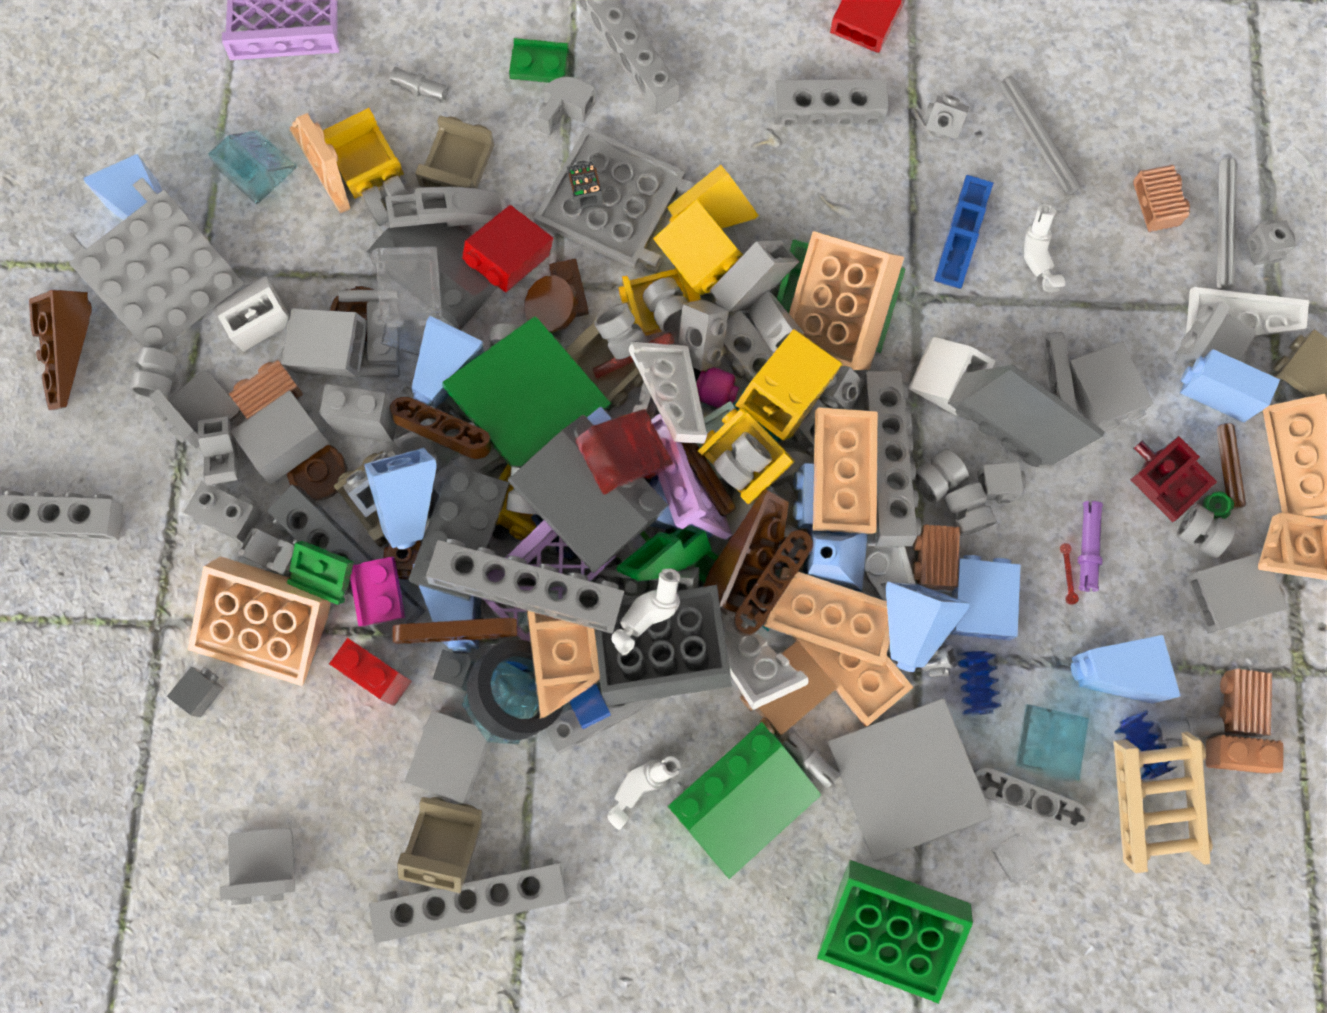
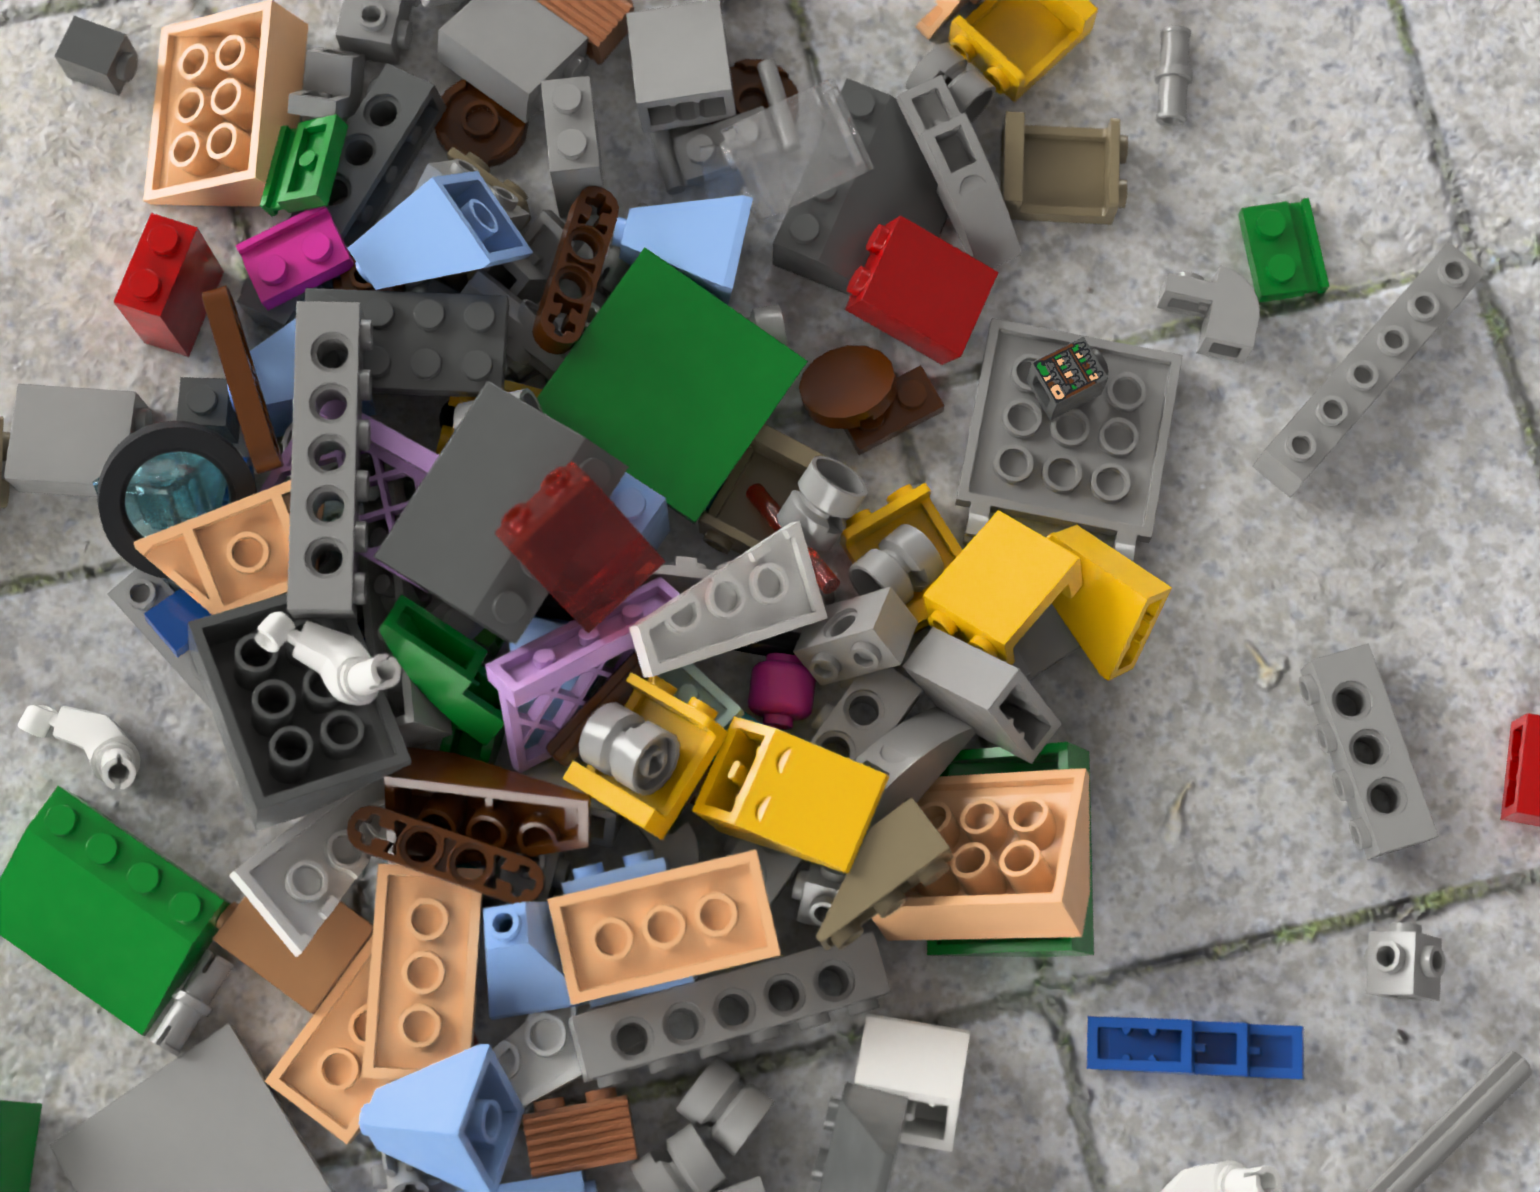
camera: 75 degrees right, 0 degrees up
(835, 335) = (889, 863): none -> dark tan slope

